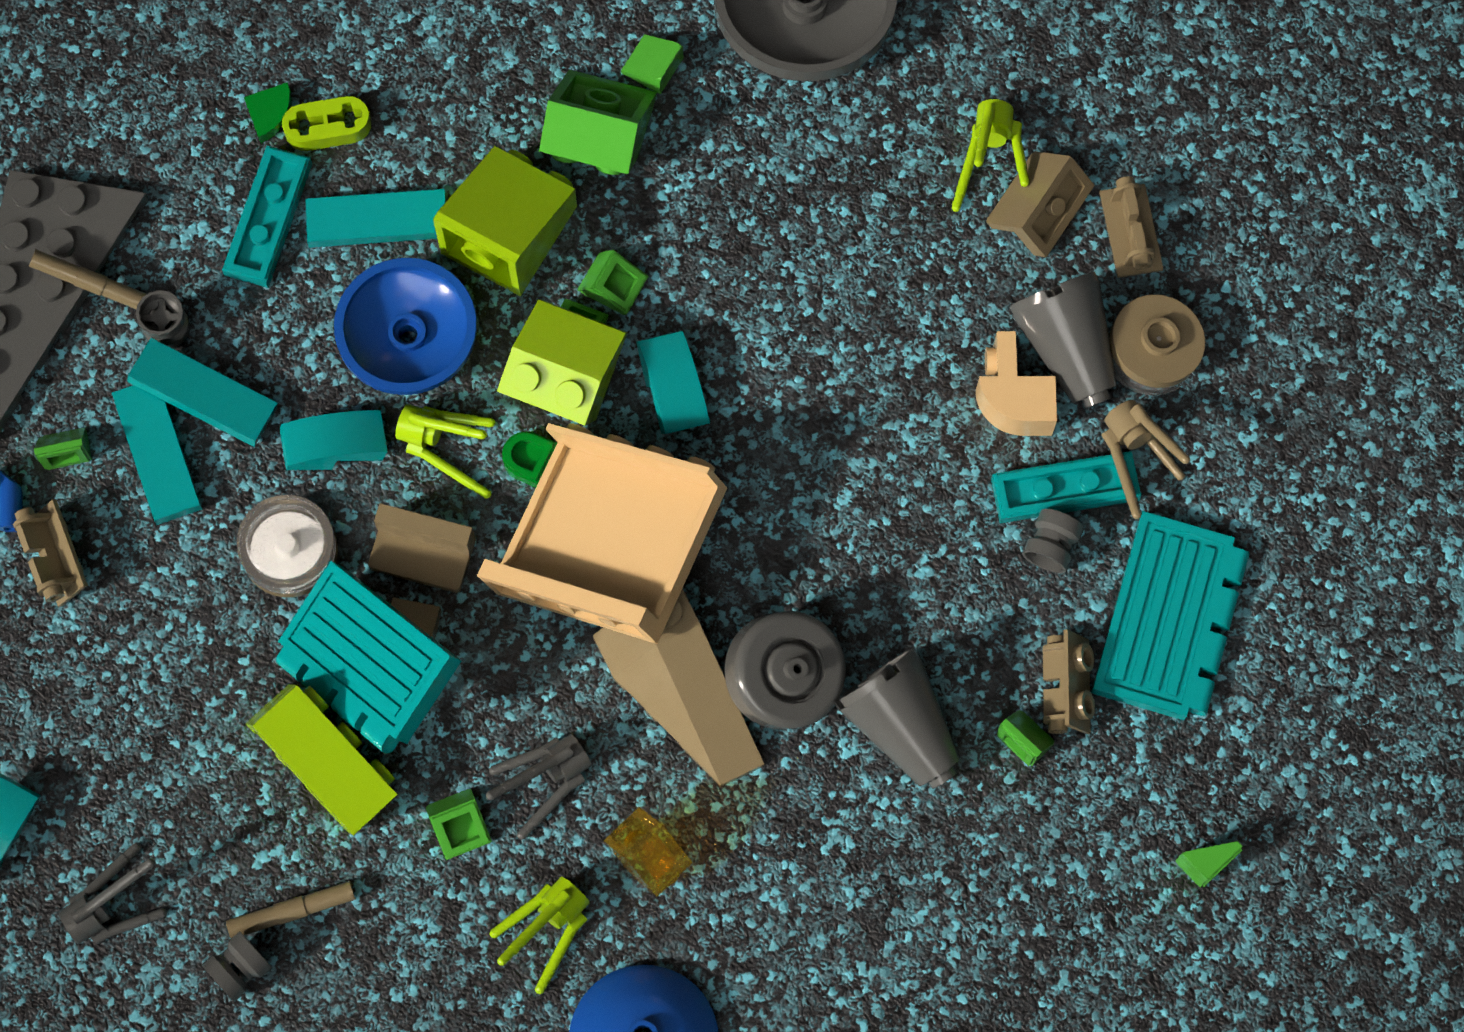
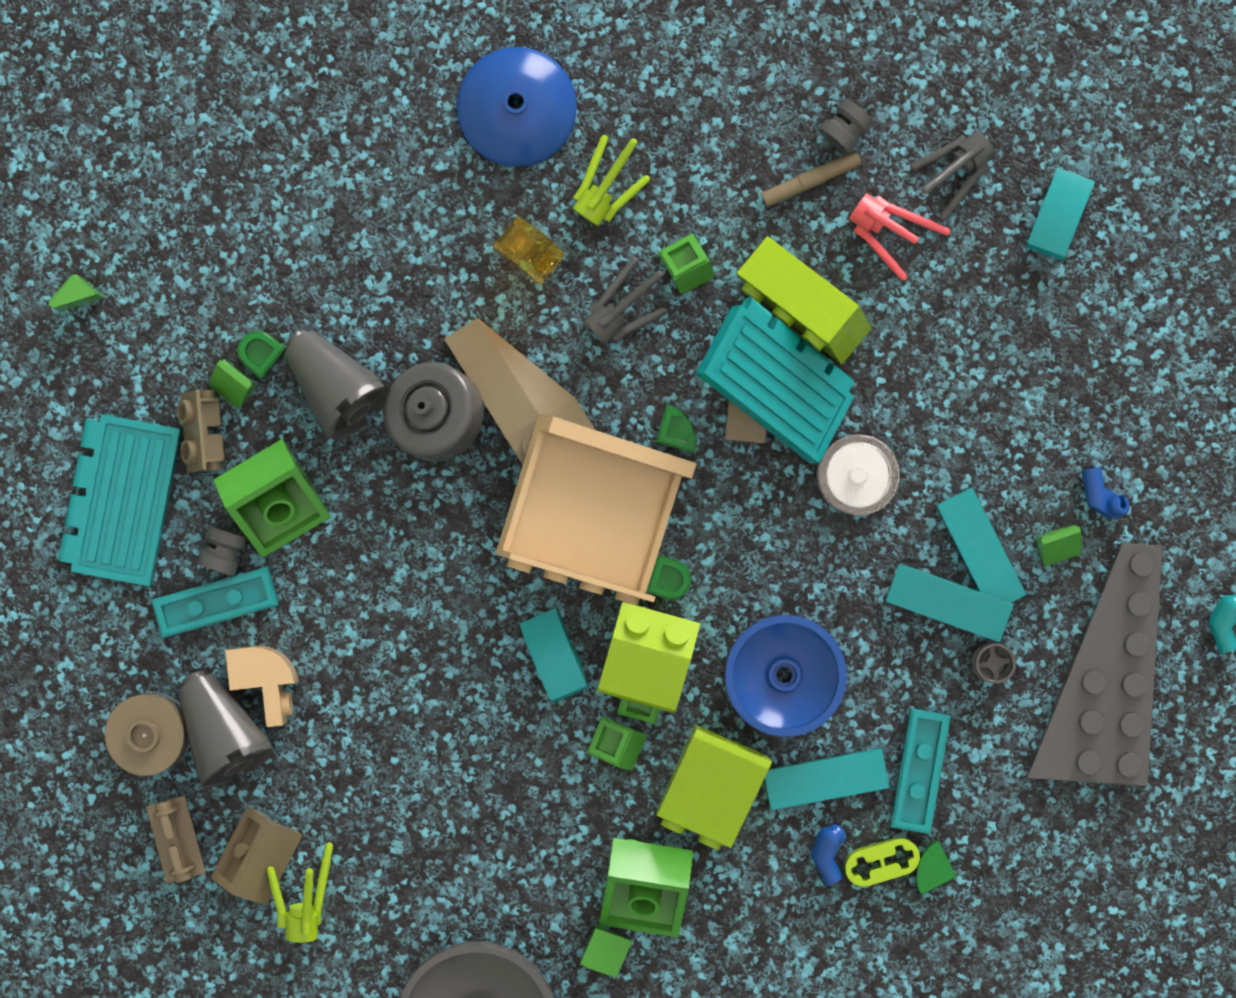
camera: 170 degrees right, 15 degrees up
(57, 569) = (1059, 465): dark tan hinge -> none
(86, 279) = (1061, 690): dark tan piece -> none
(222, 852) = (874, 215): none -> coral plant
(333, 437) = (833, 572): teal slope -> none
(389, 140) = (825, 850): none -> blue arm
(421, 548) = (747, 486): dark tan panel -> none
(424, 427) = (761, 592): lime plant -> none
(497, 625) = (676, 430): none -> green tile
(989, 771) = (259, 352): none -> green tile
(990, 595) = (271, 498): none -> bright green slope
(1133, 427) = (163, 656): dark tan plant -> none

